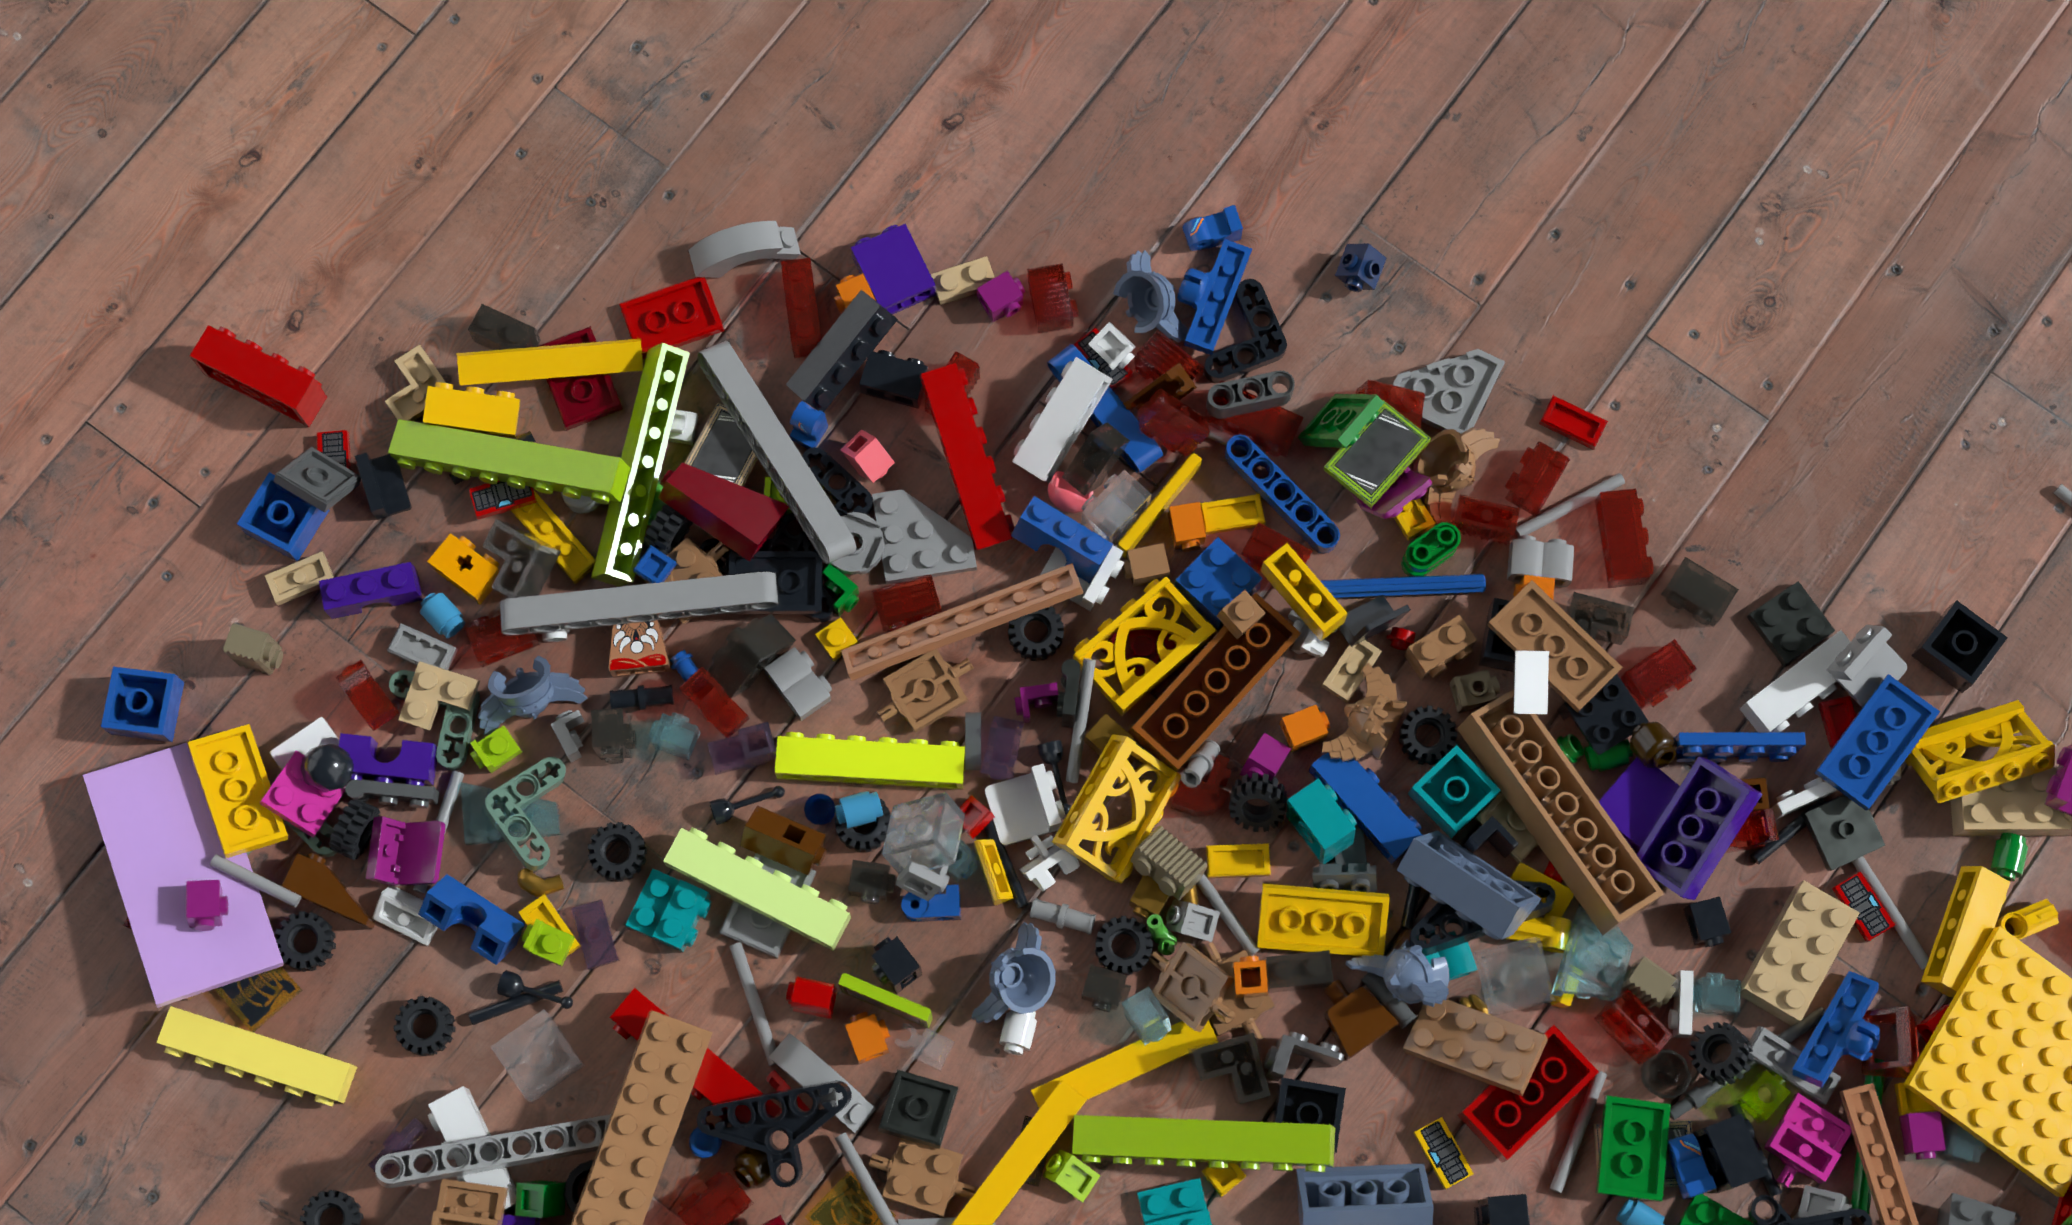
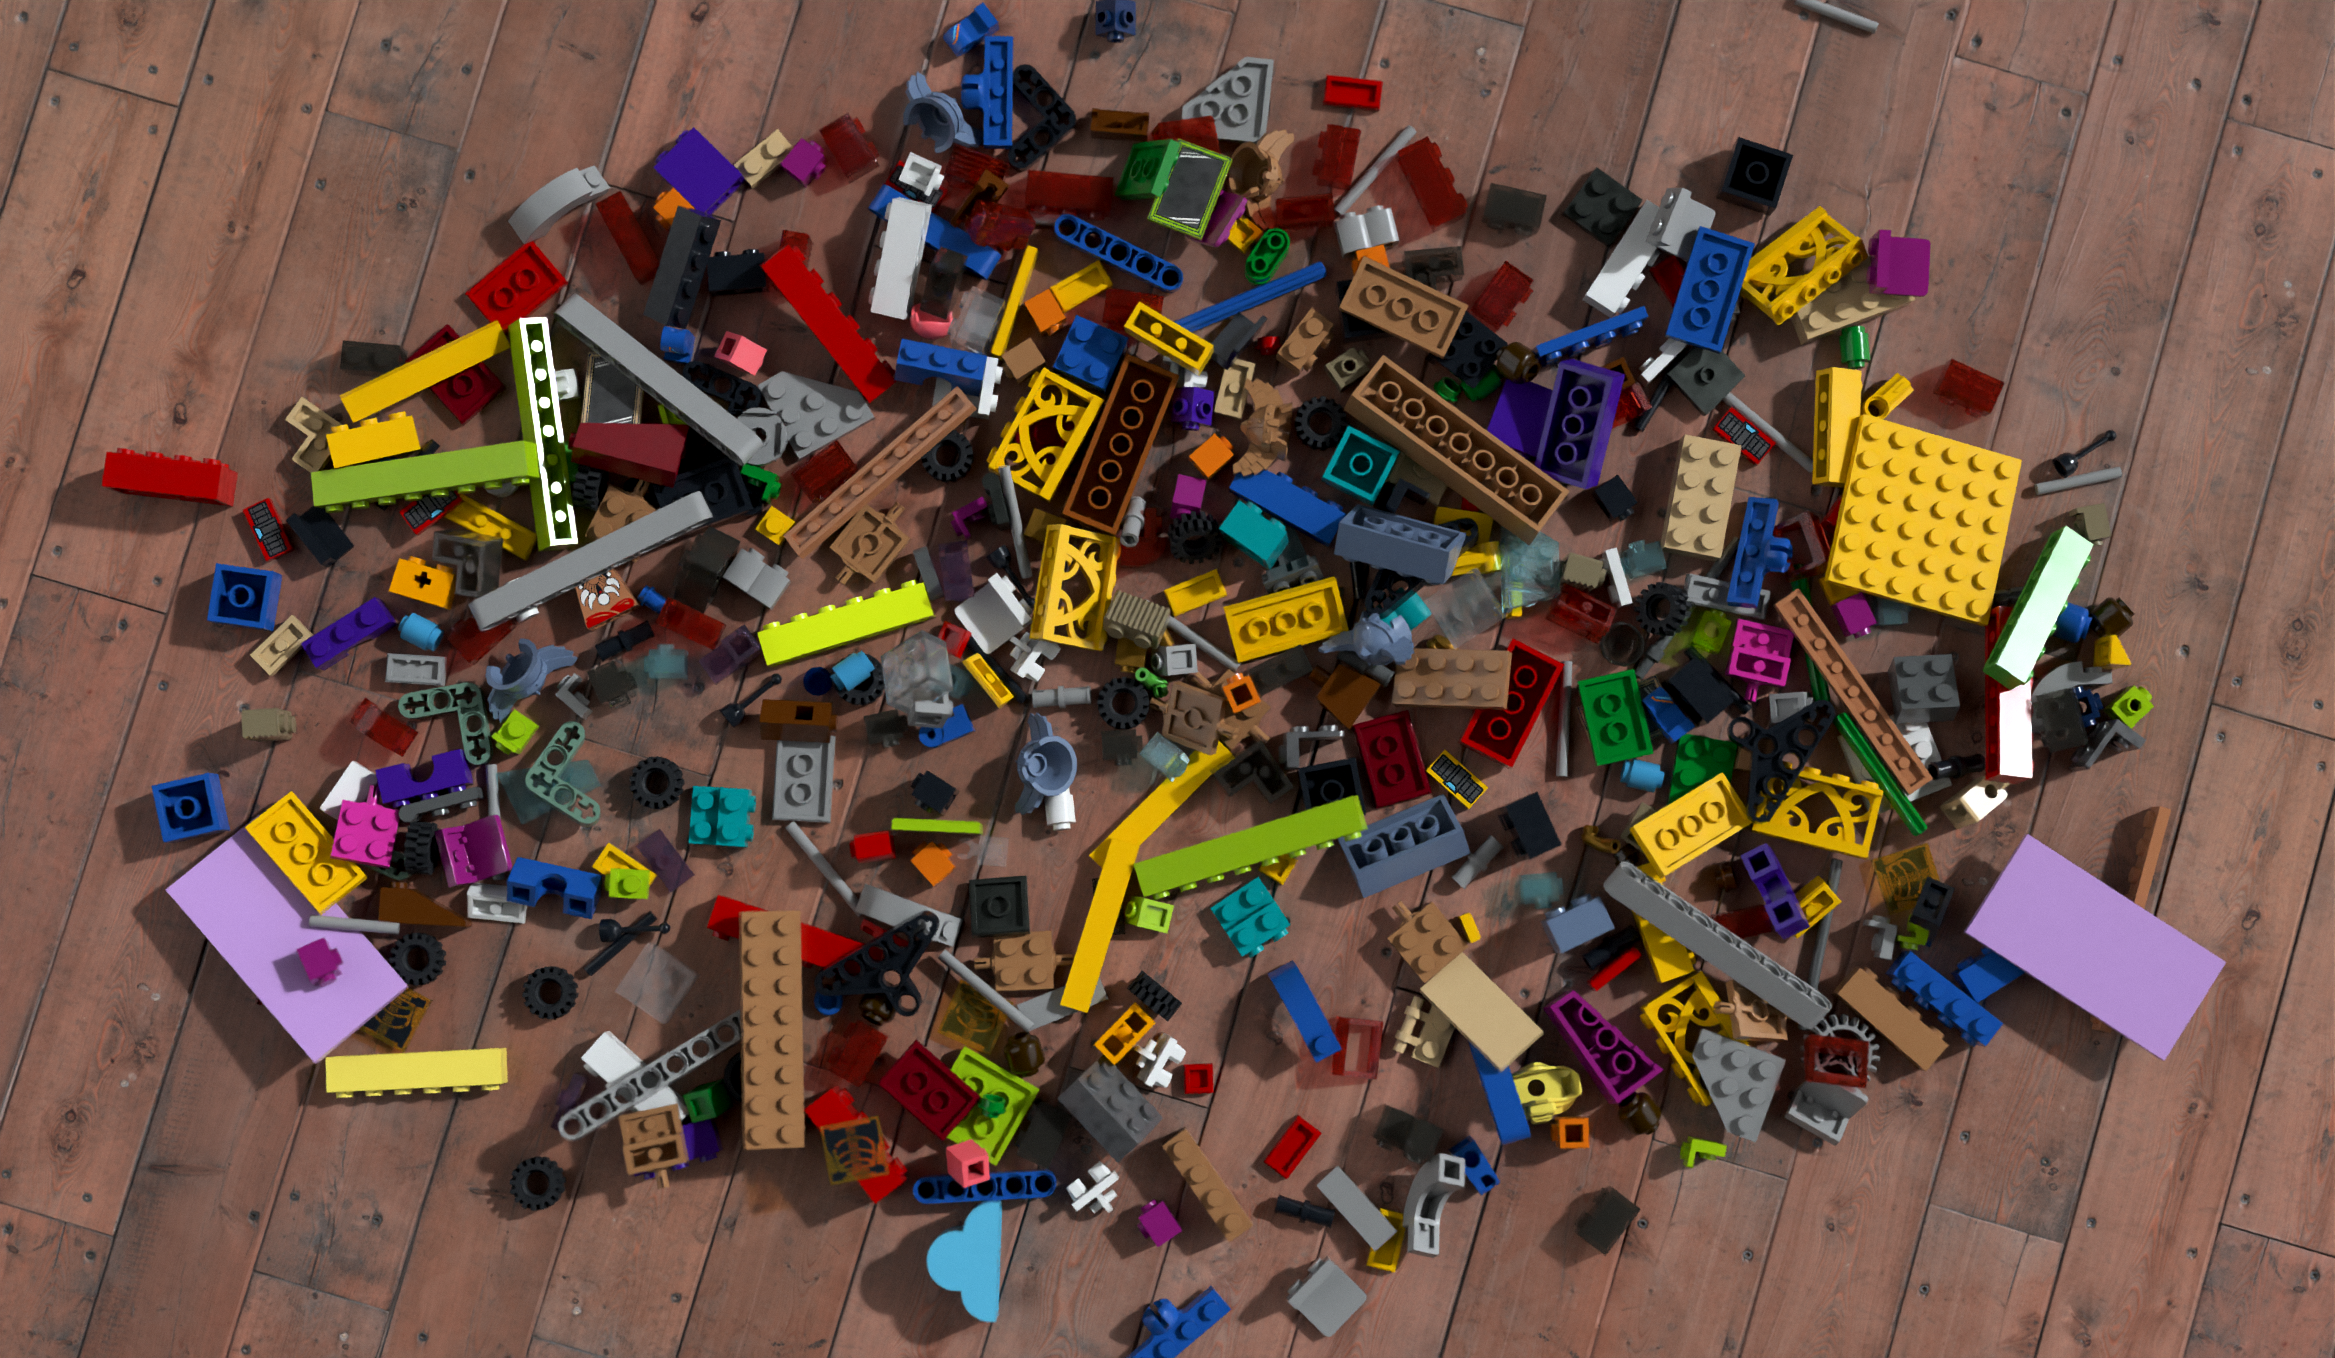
camera: 20 degrees left, 10 degrees up
(317, 479) = (261, 553): dark grey tile -> none
(327, 767) = (376, 805): black hair -> none
(430, 688) = (438, 699): tan plate -> none
(537, 886) = (598, 837): pearl gold arm -> none
(654, 566) = (591, 522): blue tile -> none
(757, 888) = (790, 771): yellowish green brick -> none
(1241, 614) = (1121, 380): medium nougat brick -> none
(1260, 384) = (1064, 162): dark grey beam -> none
(1302, 671) = (1192, 407): none -> dark purple brick
(1327, 371) = (1120, 125): none -> reddish brown hinge
(1382, 1107) = (1391, 759): none -> dark red tile
(1531, 682) = (1393, 348): white slope -> none

